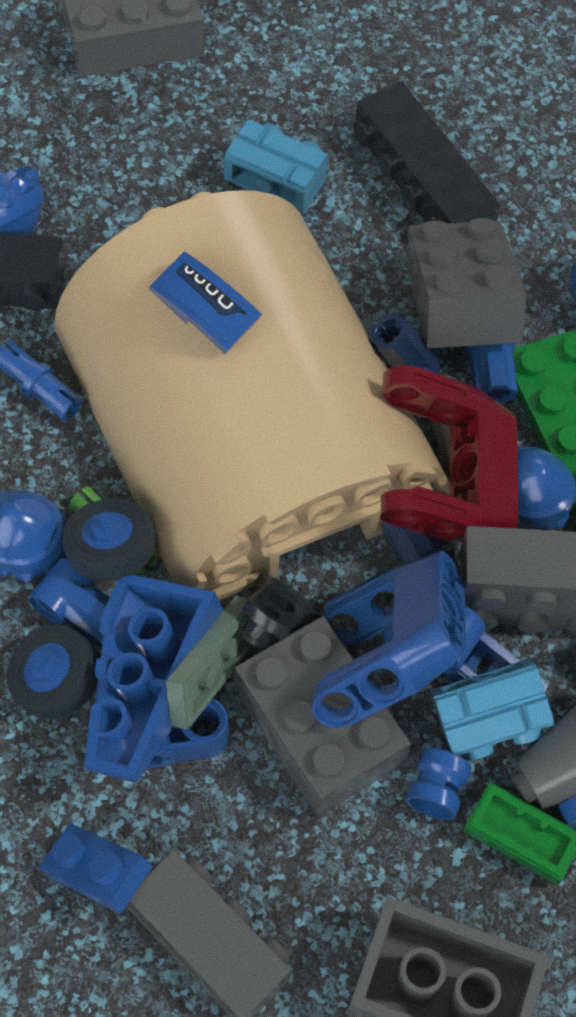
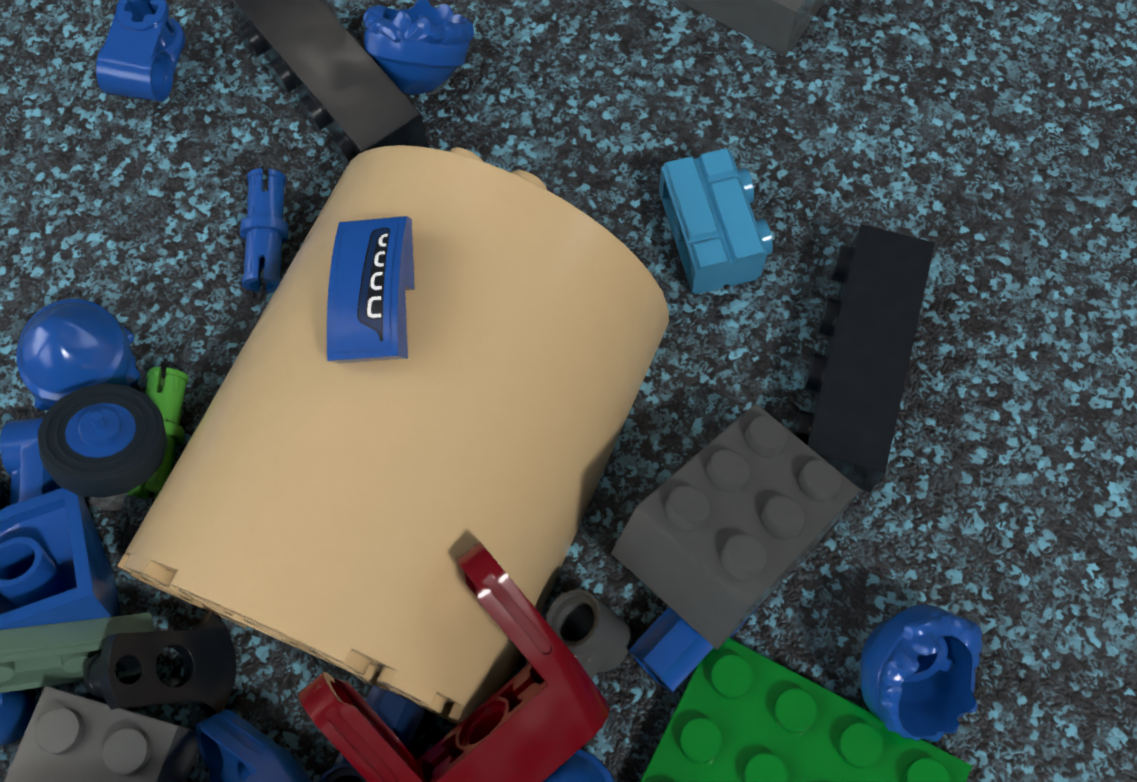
camera: 55 degrees right, 5 degrees up
(402, 345) = (589, 531): dark blue piece -> none

